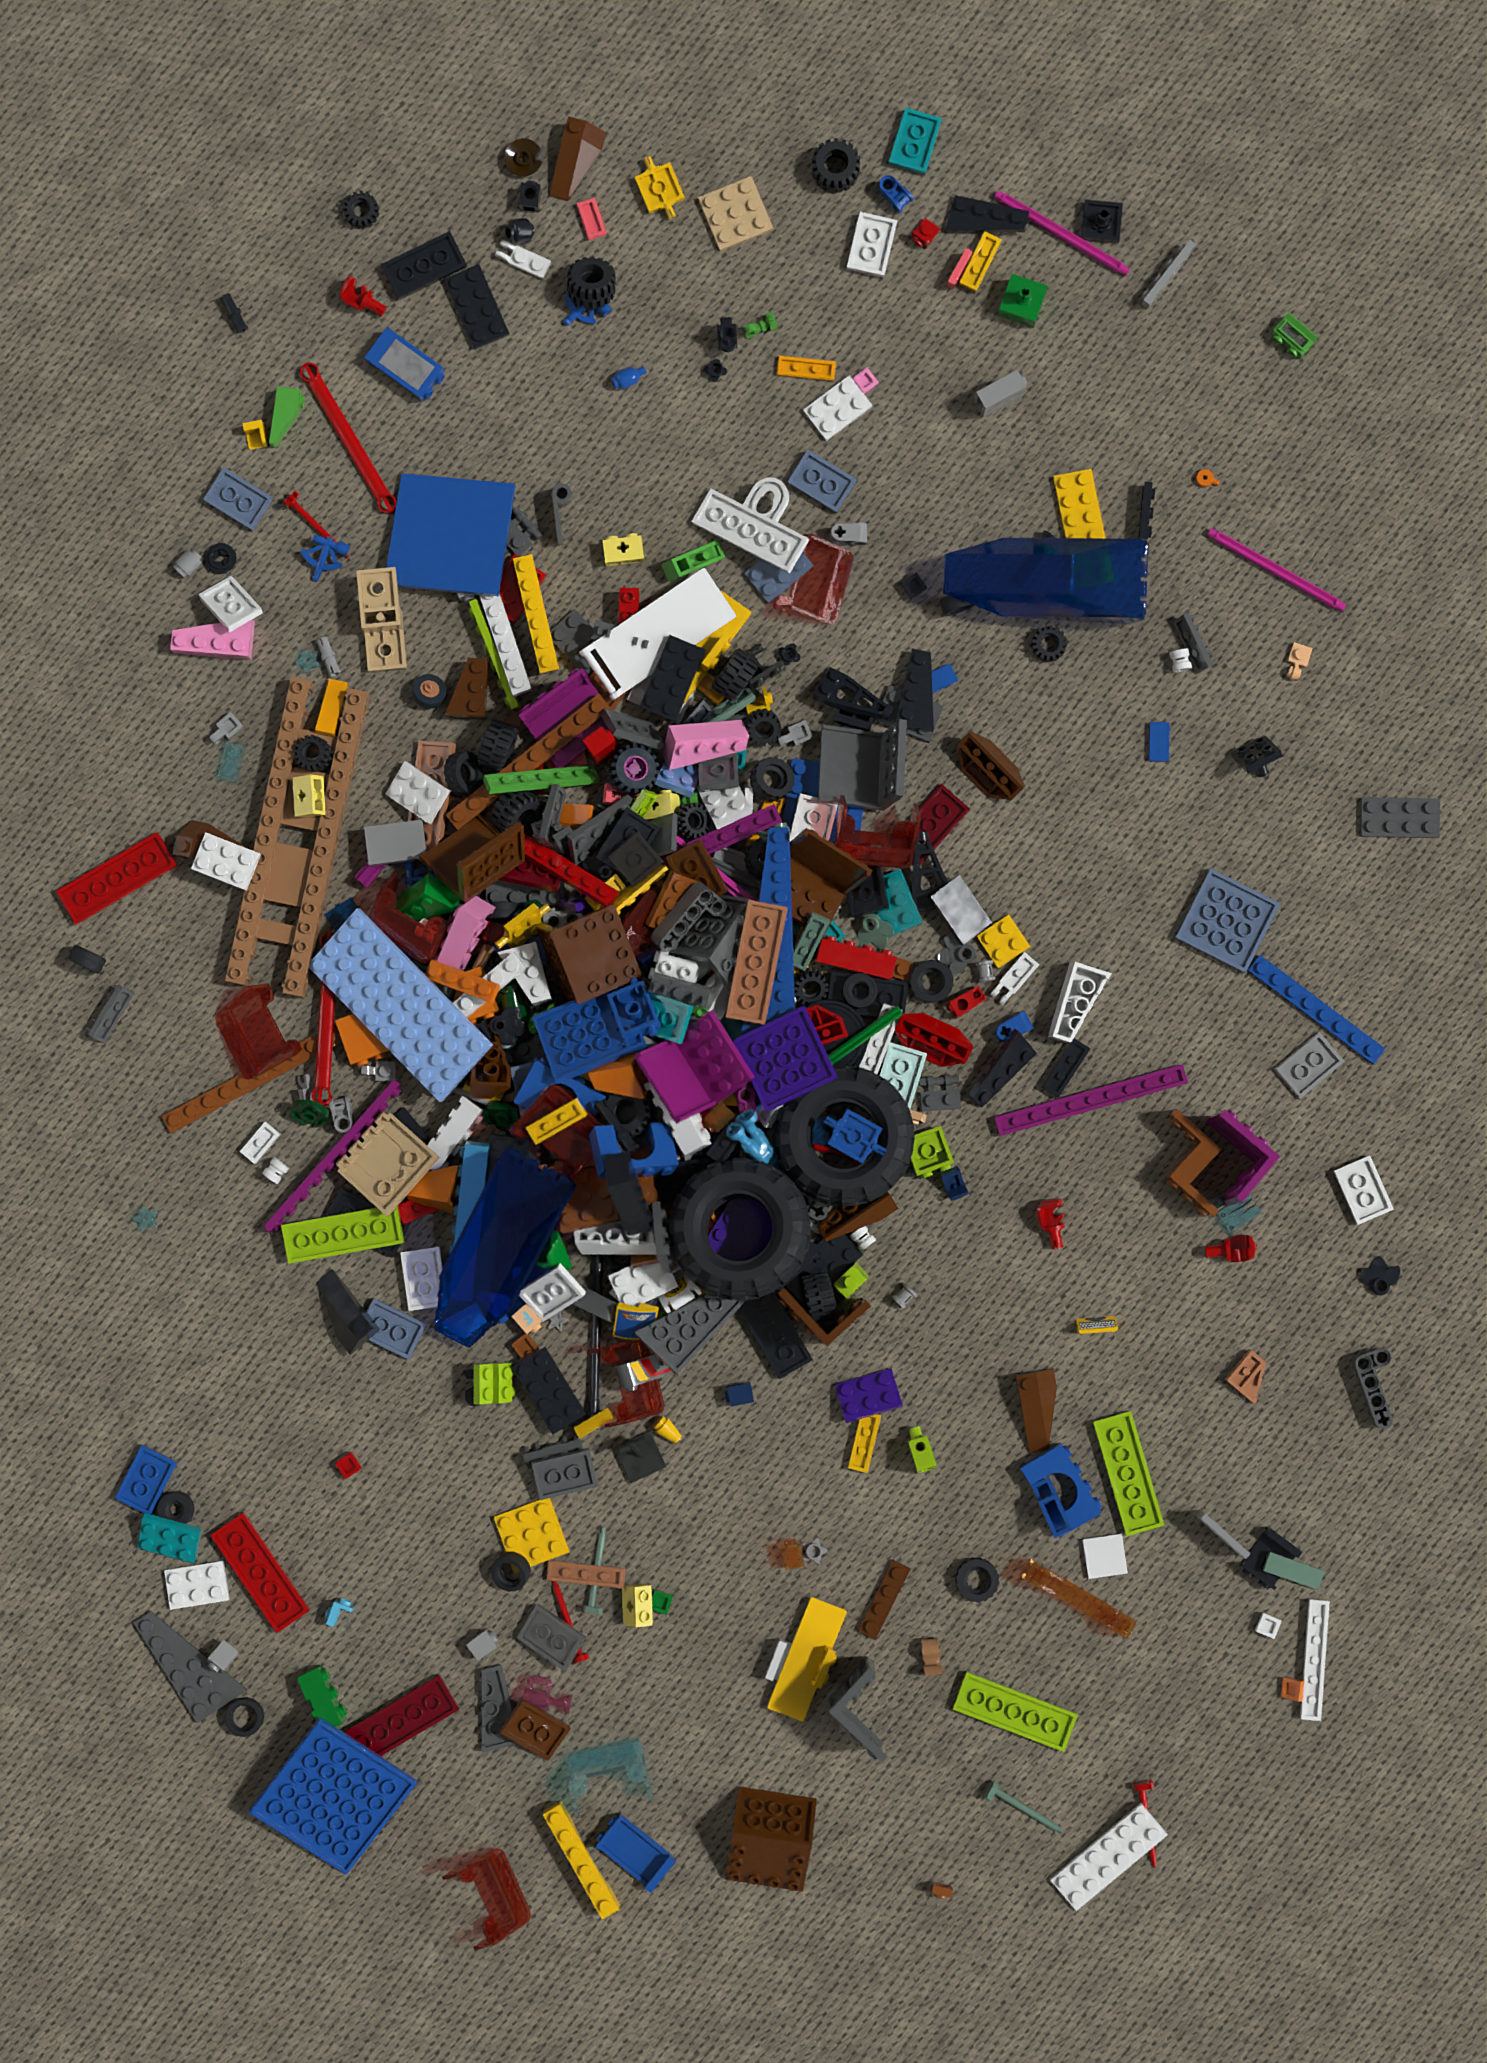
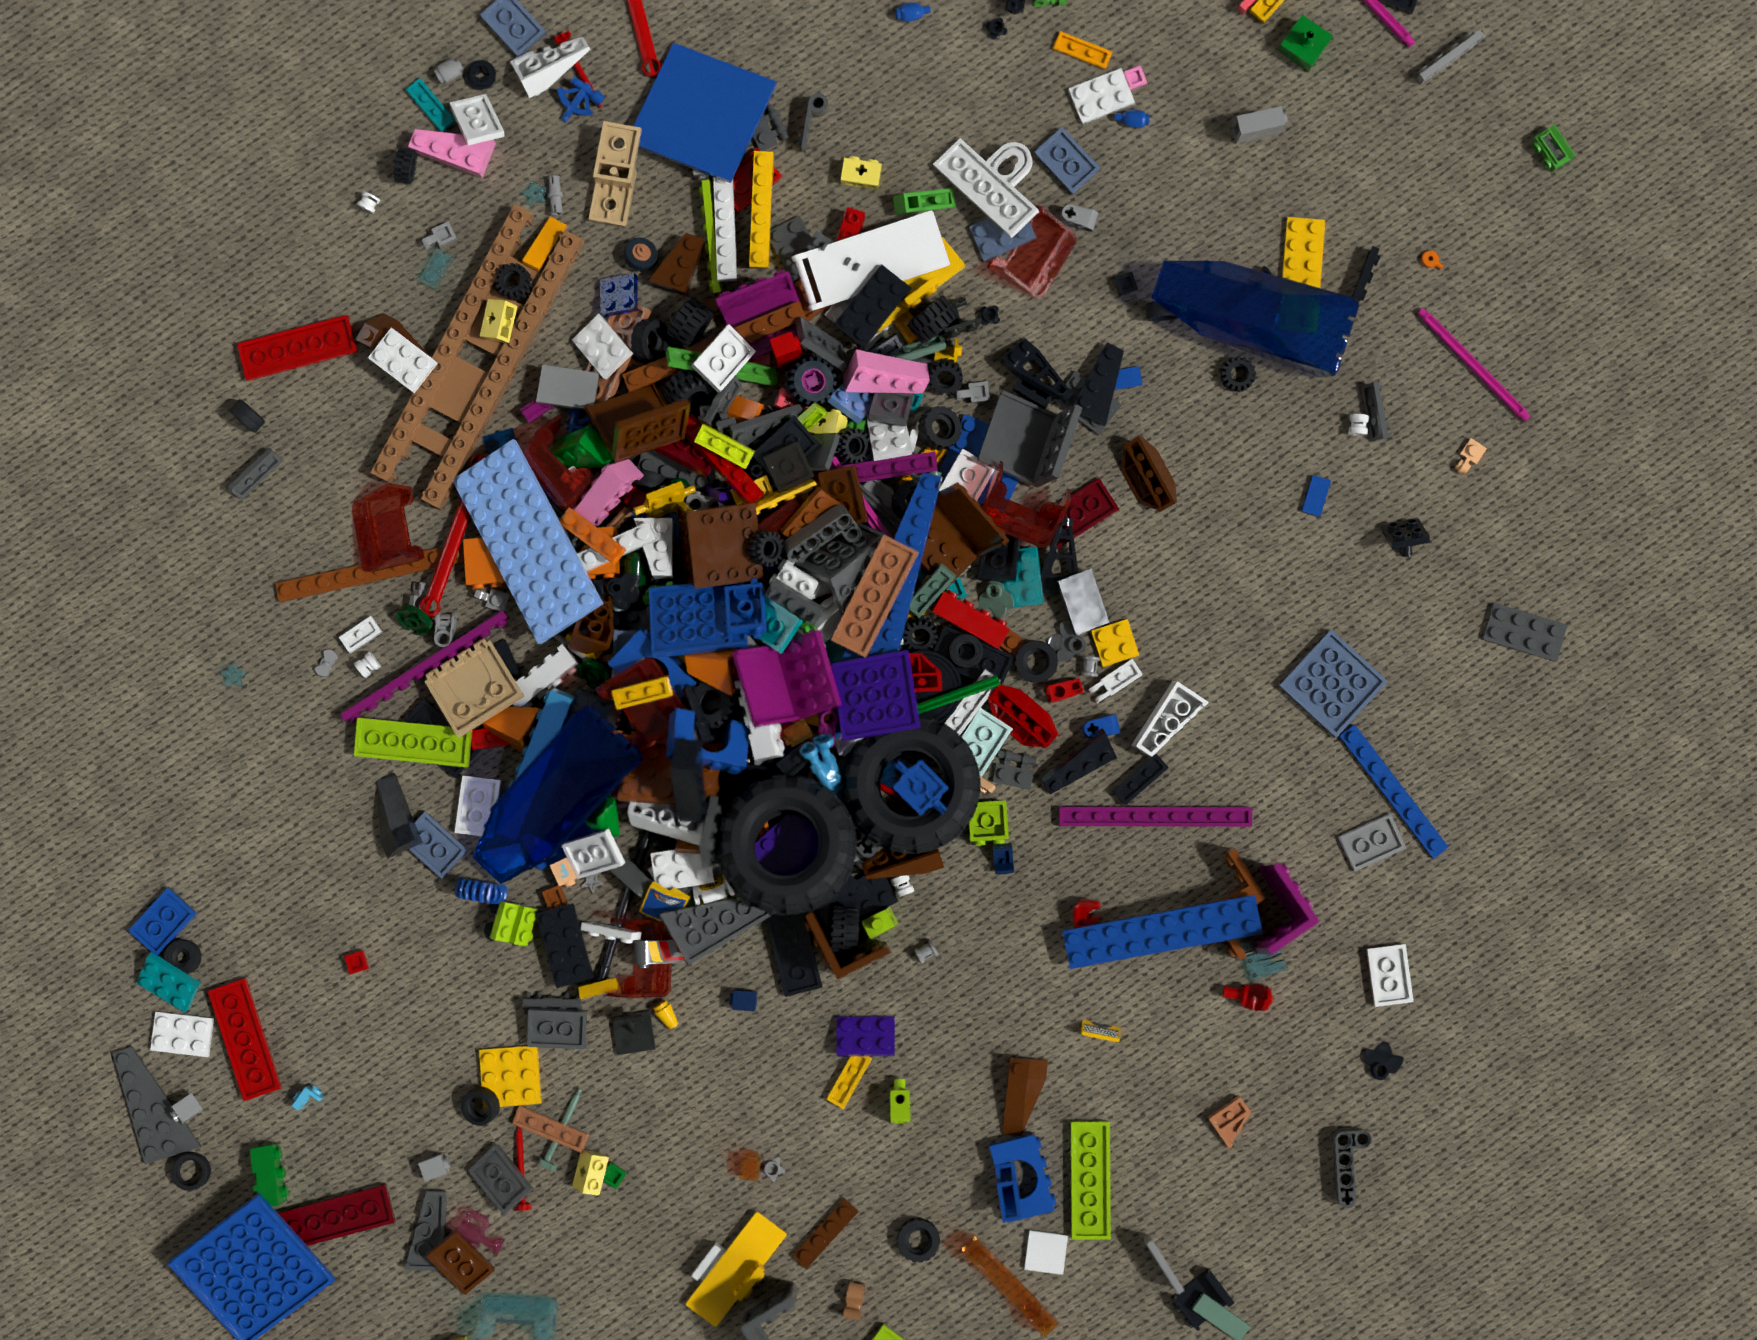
camera: 15 degrees right, 0 degrees up
(145, 717) = (366, 203): none -> white wheel
(172, 669) = (405, 165): none -> black tyre
(180, 602) = (431, 105): none -> teal tile
(236, 1174) = (325, 667): none -> light grey piece
(280, 536) = (542, 69): none -> white wedge
(419, 737) = (619, 295): none -> clear blue plate
(451, 1360) = (480, 891): none -> blue gear
(541, 771) = (723, 358): none -> white plate
(567, 856) = (724, 446): none -> neon yellow plate
(590, 1364) = (610, 932): none -> white plate
(628, 945) = (757, 548): none -> black tyre
(875, 421) = (1133, 118): none -> blue plant
(1129, 1210) = (1162, 931): none -> blue plate

